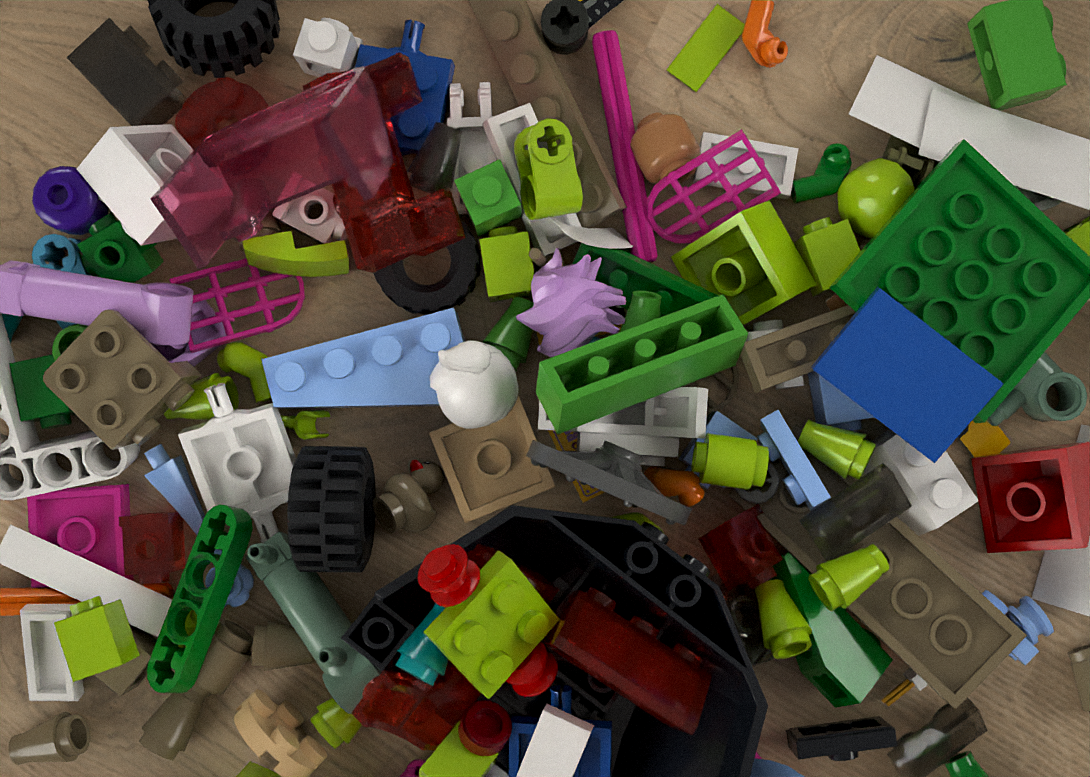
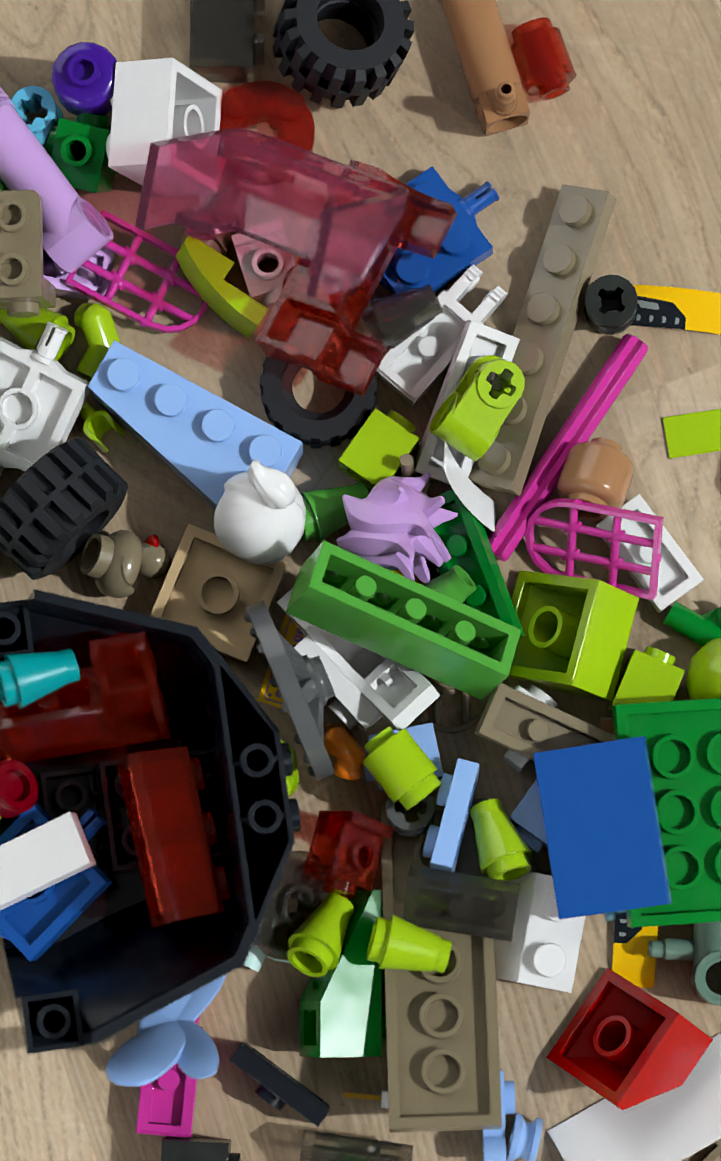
camera: 45 degrees right, 5 degrees down
(326, 47) = (402, 146): white brick -> none
(489, 197) = (412, 383): bright green brick -> none
(489, 621) = (95, 700): lime plate -> none

